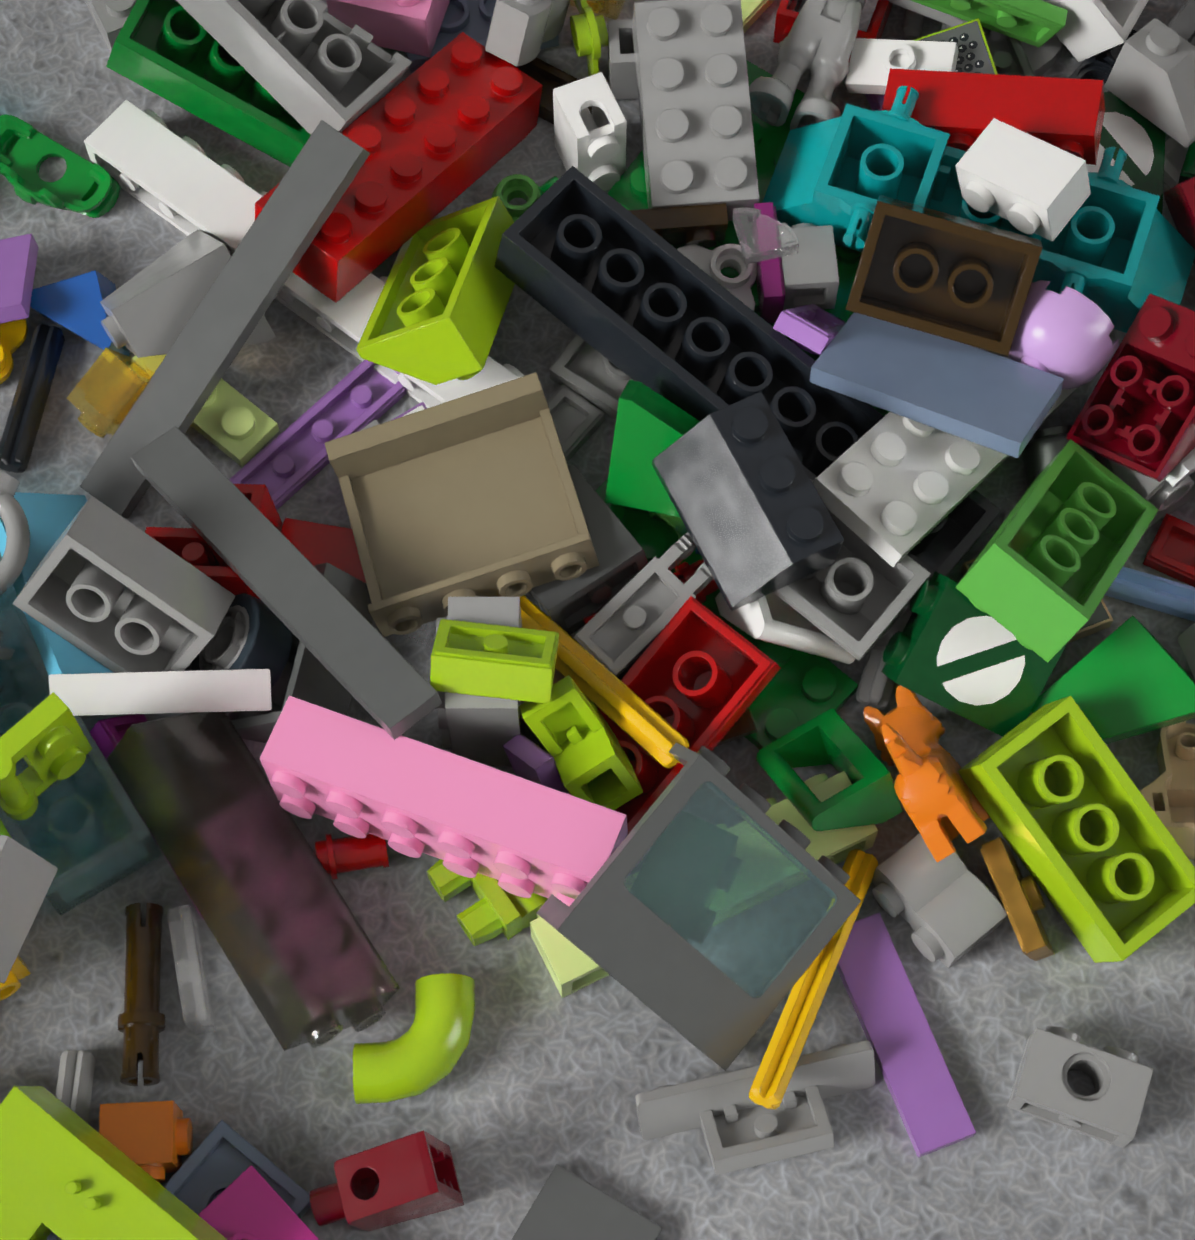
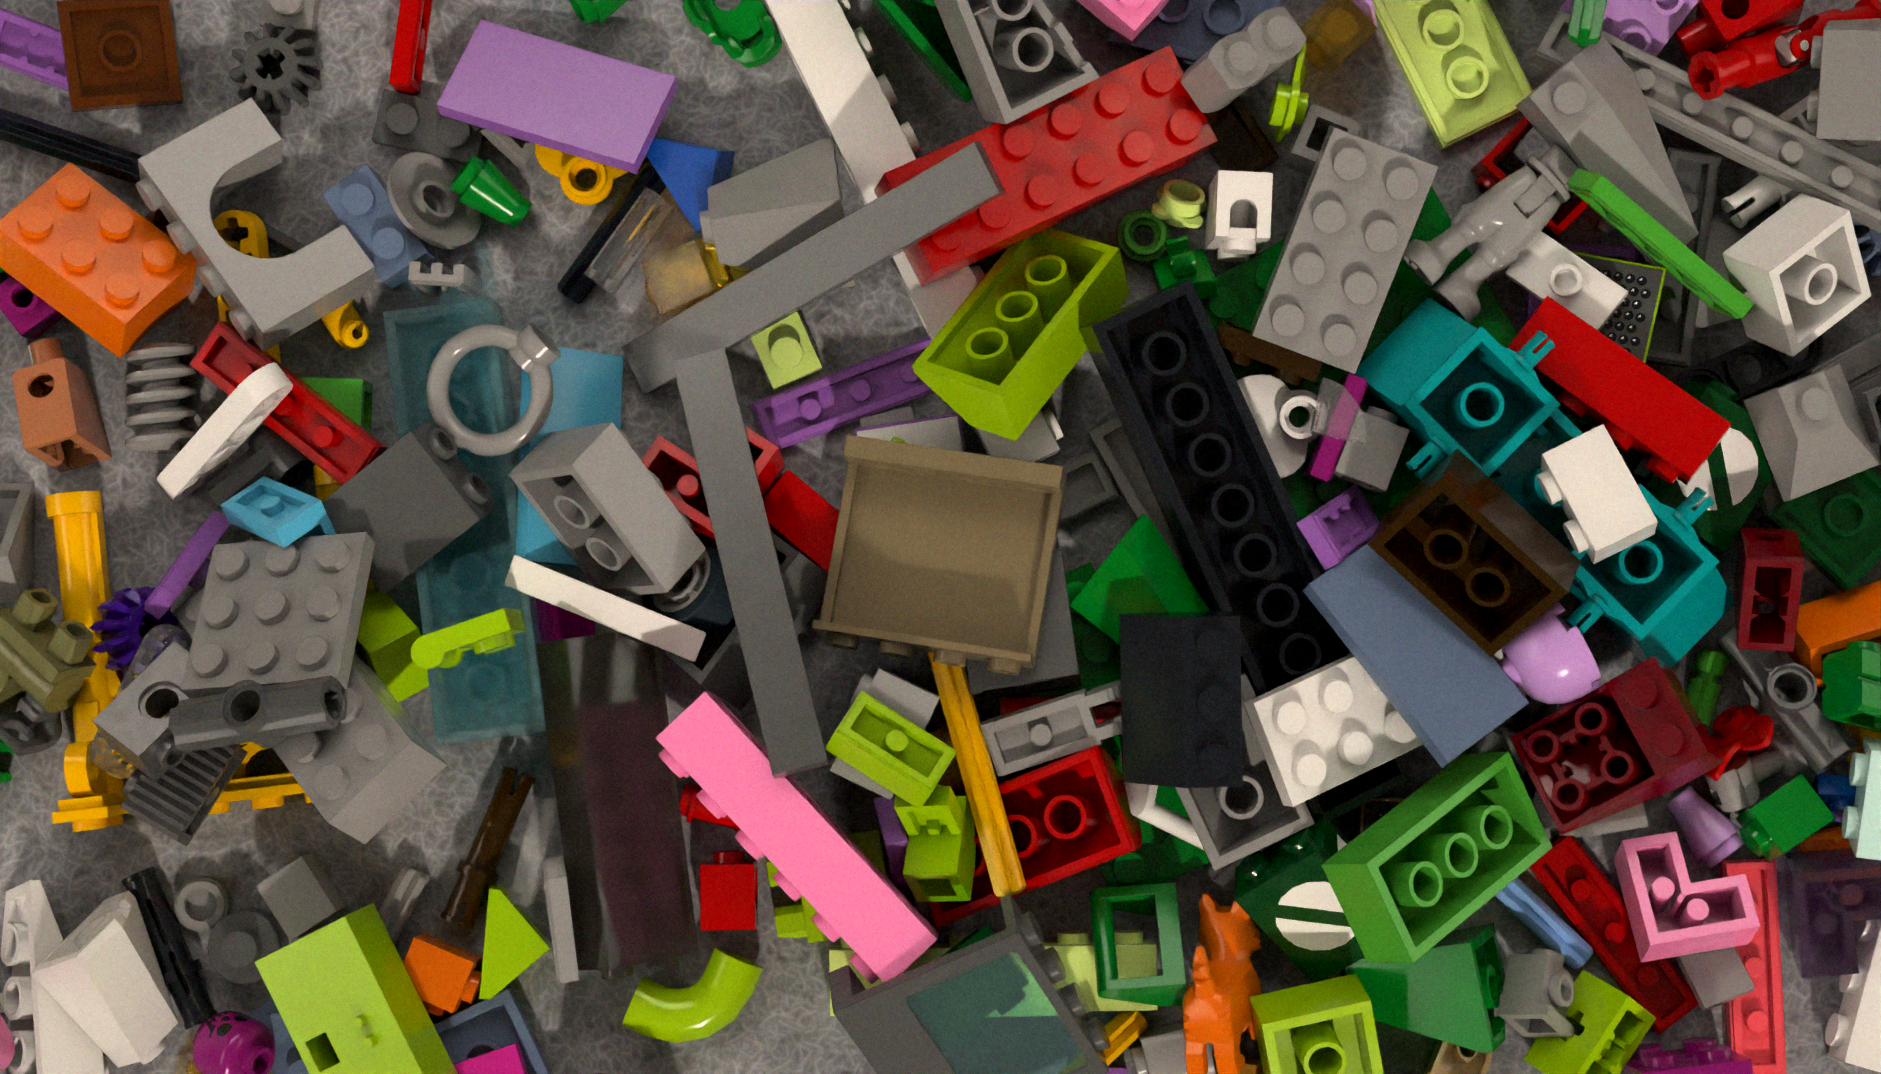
camera: 20 degrees right, 20 degrees up
(62, 416) = (650, 243): none -> clear tile
(206, 1071) = (509, 943): none -> lime slope
(241, 1008) = (560, 919): none -> light grey tile
(405, 923) = (729, 892): none -> red brick
(537, 160) = (1180, 204): none -> yellowish green plate

